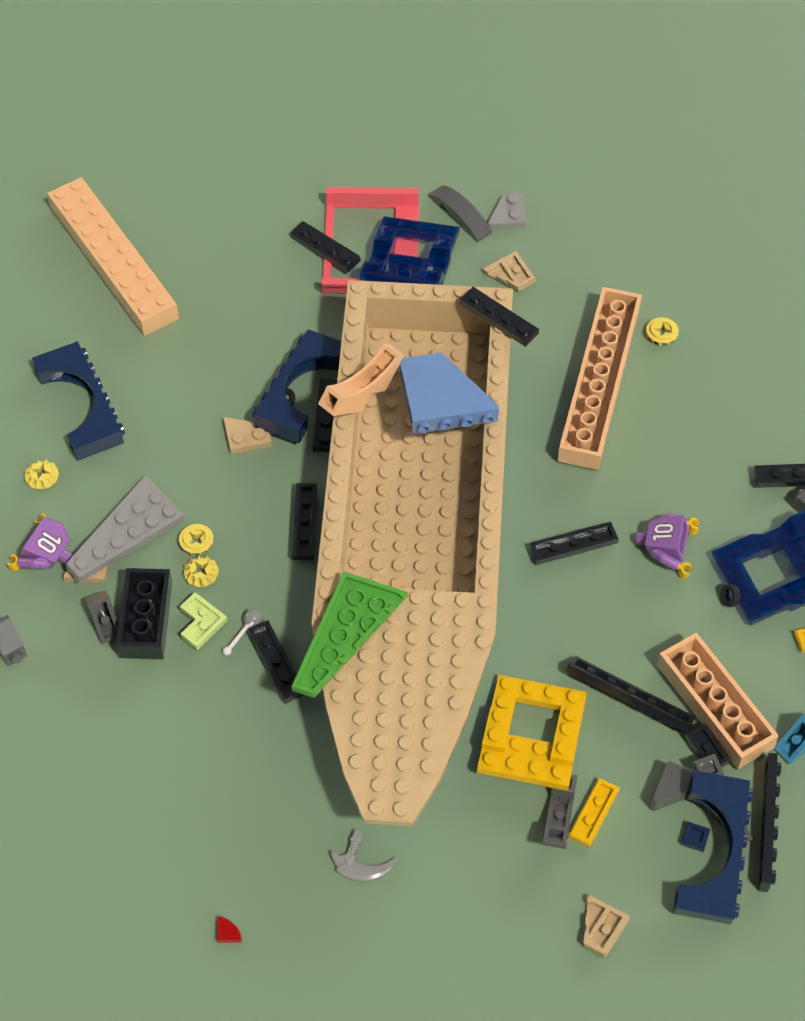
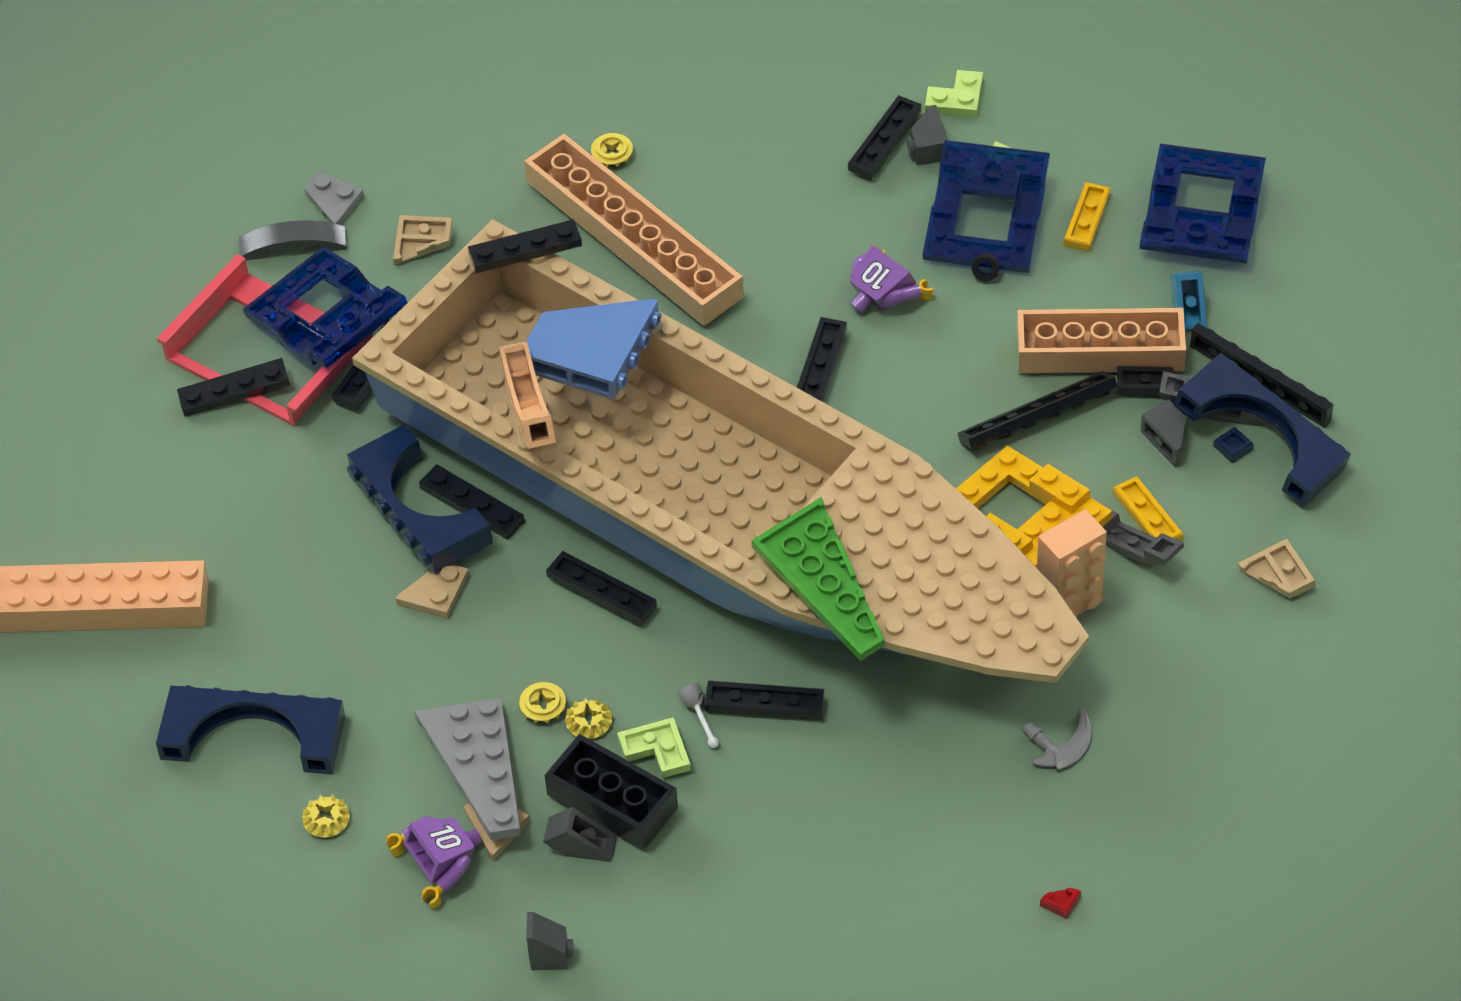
camera: 55 degrees left, 5 degrees down
(485, 783) = (1075, 560): none -> light nougat brick

